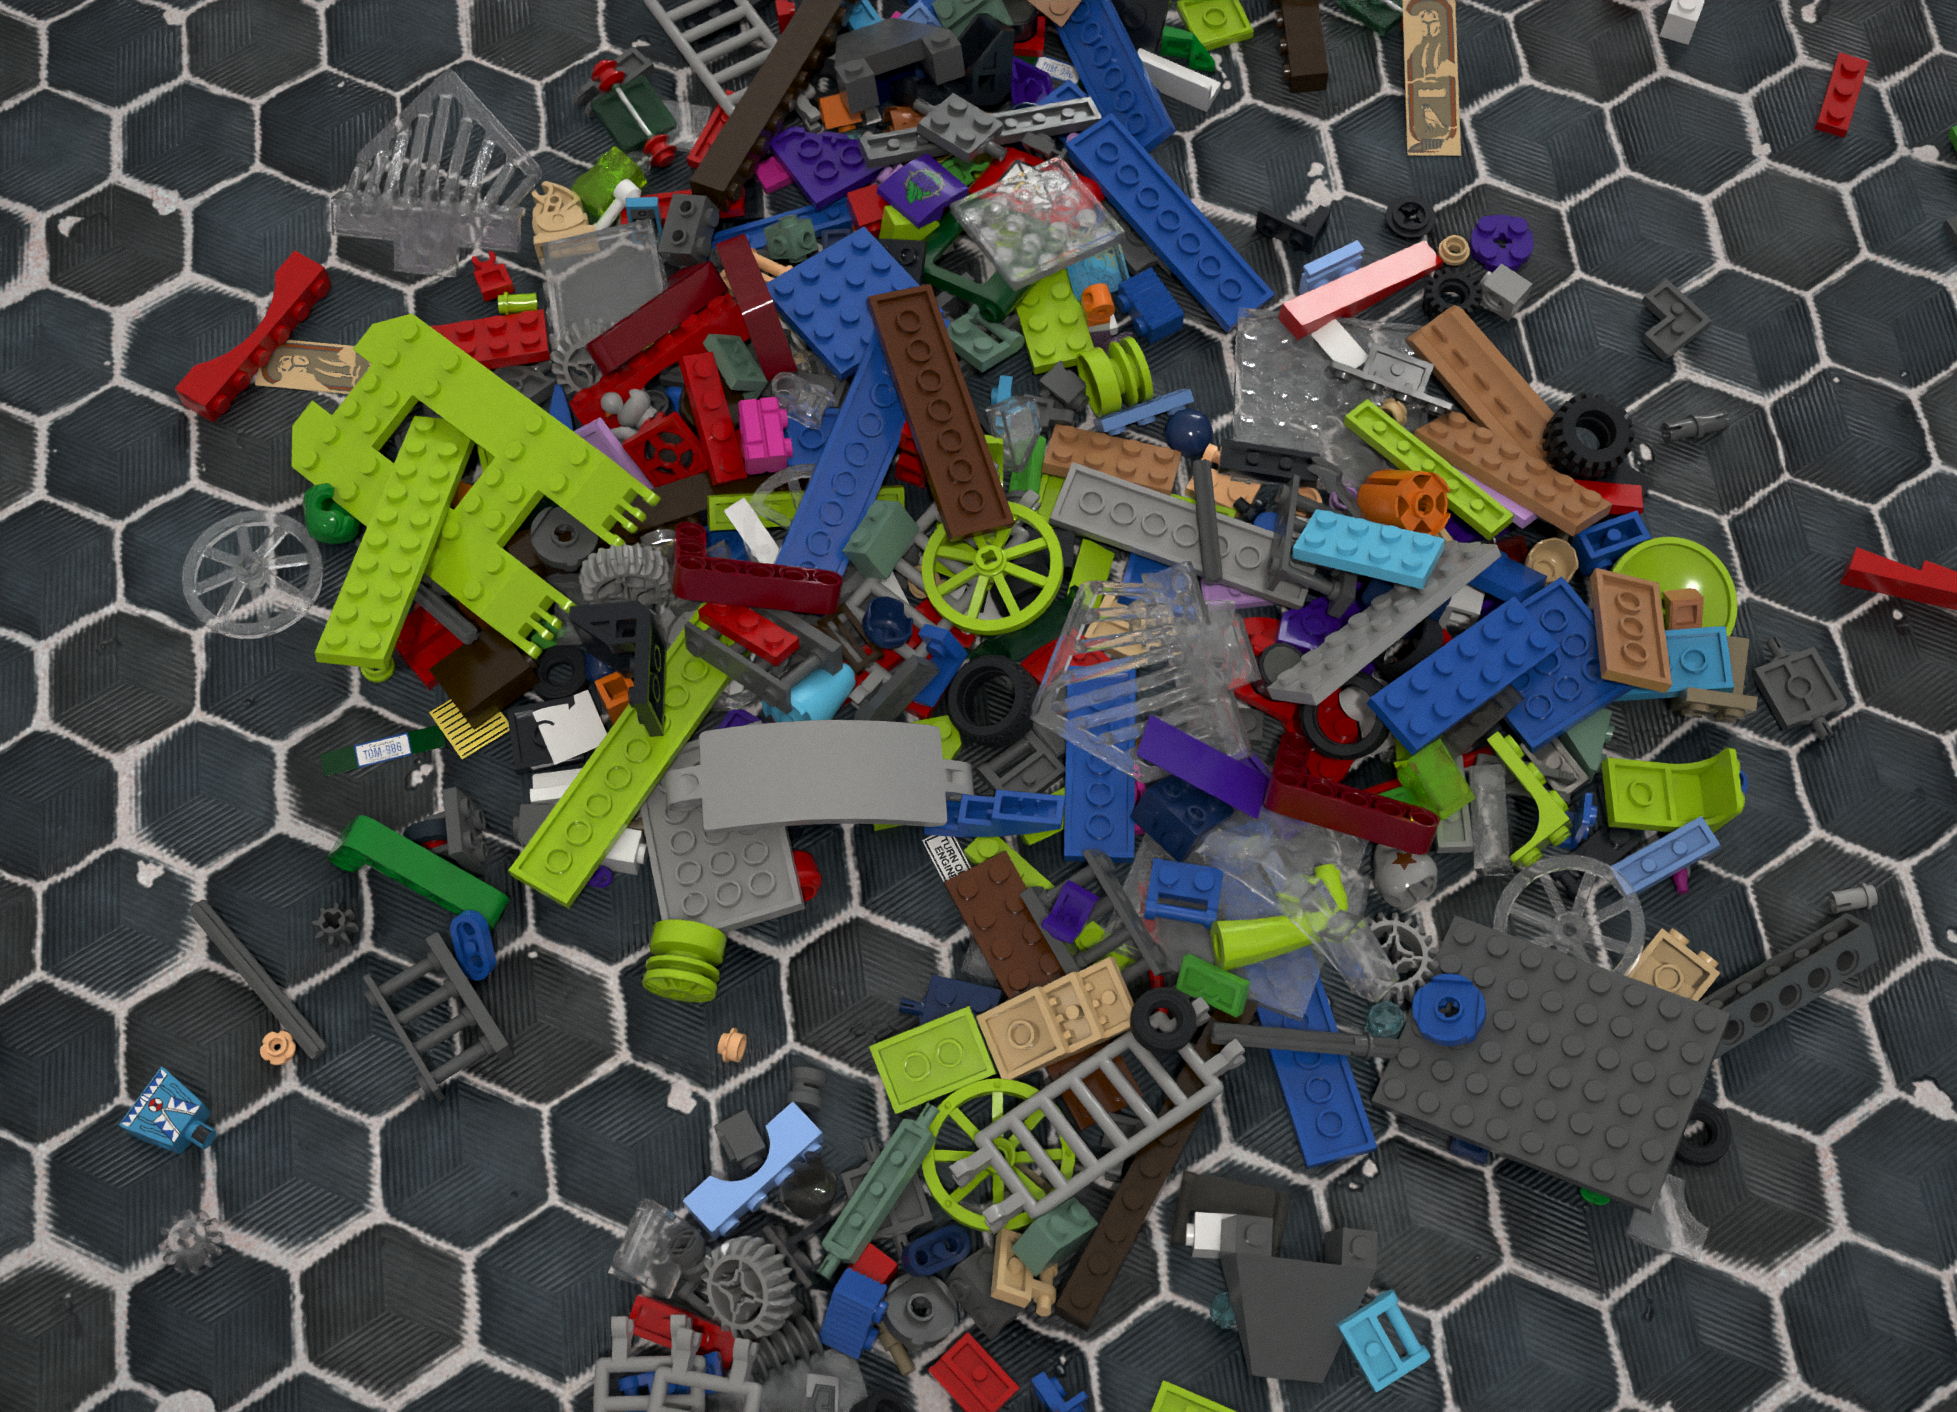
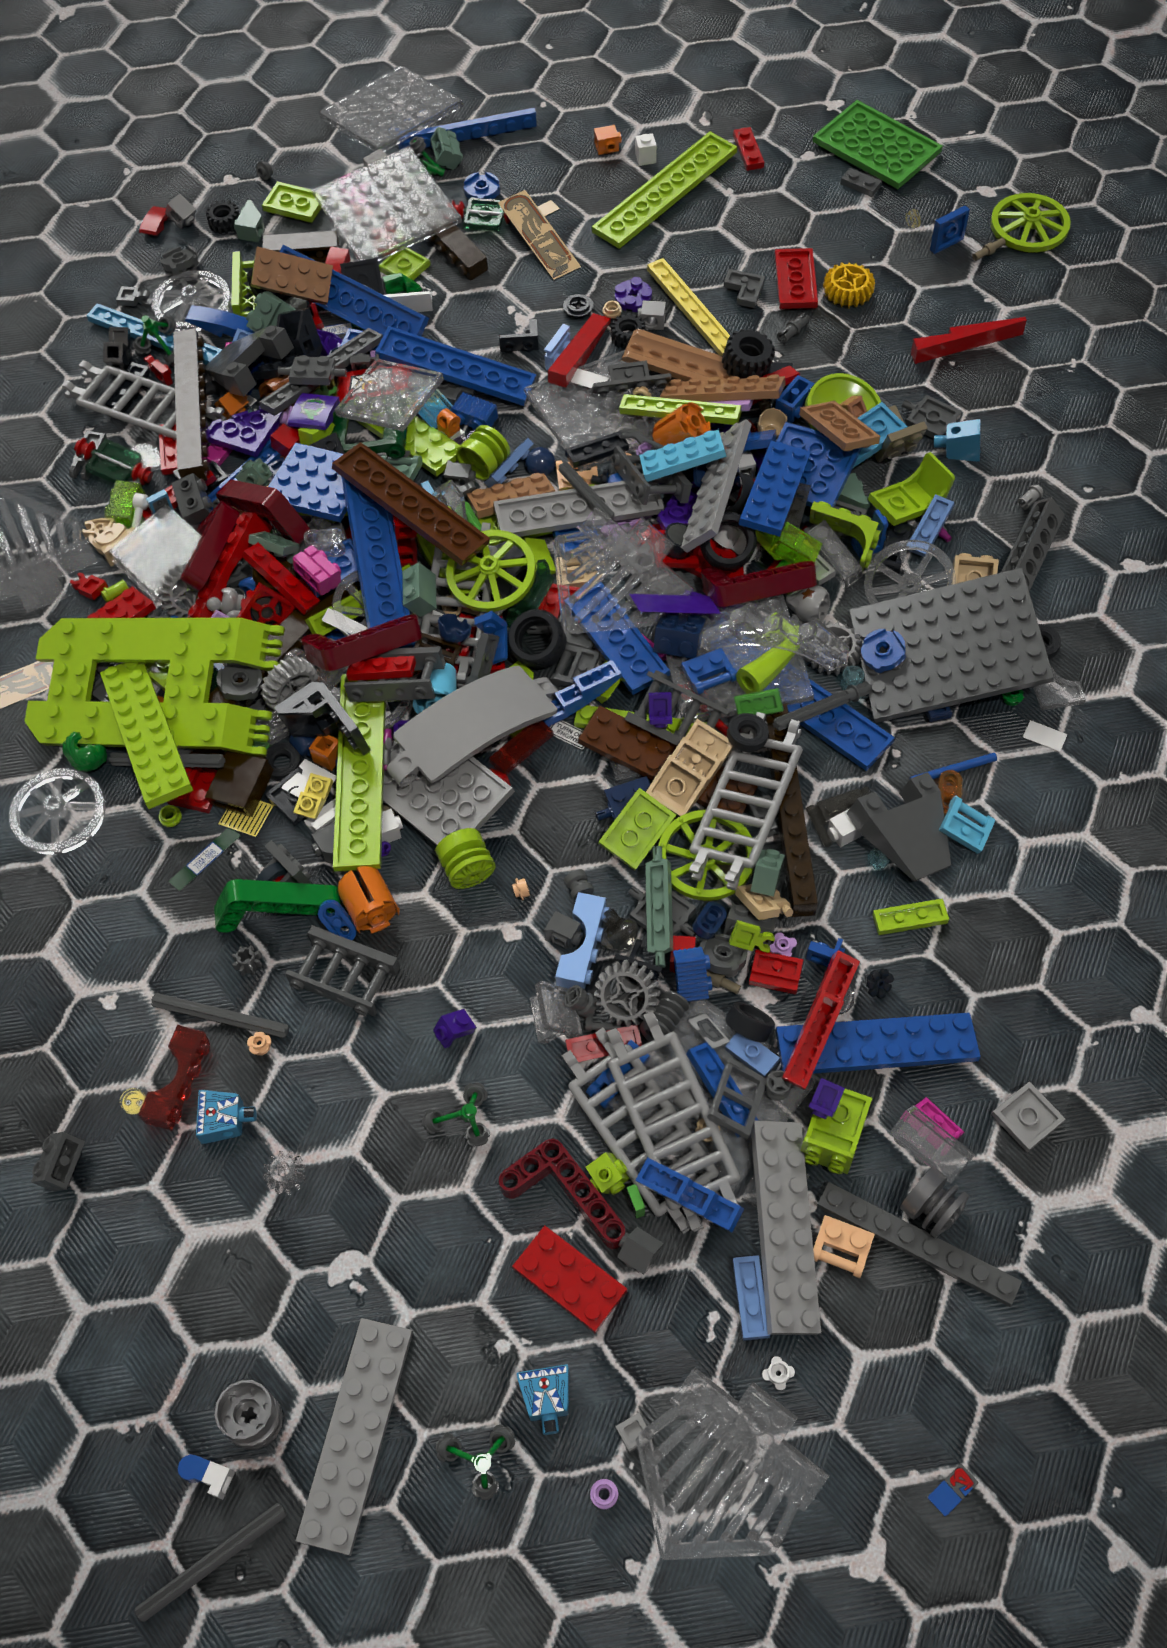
camera: 30 degrees left, 5 degrees down
(88, 1025) = (132, 1100): none -> clear tile
(116, 1058) = (164, 1106): none -> clear red arch
(447, 1344) = (476, 1133): none -> dark grey plant
(519, 1182) = (453, 1026): none -> dark purple bracket
(527, 938) = (366, 915): none -> orange cylinder
(559, 753) = (314, 796): none -> light yellow slope
(690, 743) = (387, 741): none -> flat silver piece
(869, 844) = (521, 746): none -> clear red plate
(965, 1310) = (748, 935): none -> lime plate
(1009, 1359) = (781, 939): none -> lavender plate
(1395, 1275) = (948, 791): none -> clear orange plate
(1433, 1244) = (961, 766): none -> blue bar
(1475, 35) = (548, 208): none -> tan sticker
(1570, 304) = (689, 304): none -> light yellow plate
(1600, 1277) = (1045, 735): none -> white sticker
(1667, 97) = (664, 189): none -> lime plate
(1757, 348) = (796, 278): none -> red plate
(1809, 751) = (961, 440): none -> dark azure torso
(1847, 399) = (849, 284): none -> yellow gear

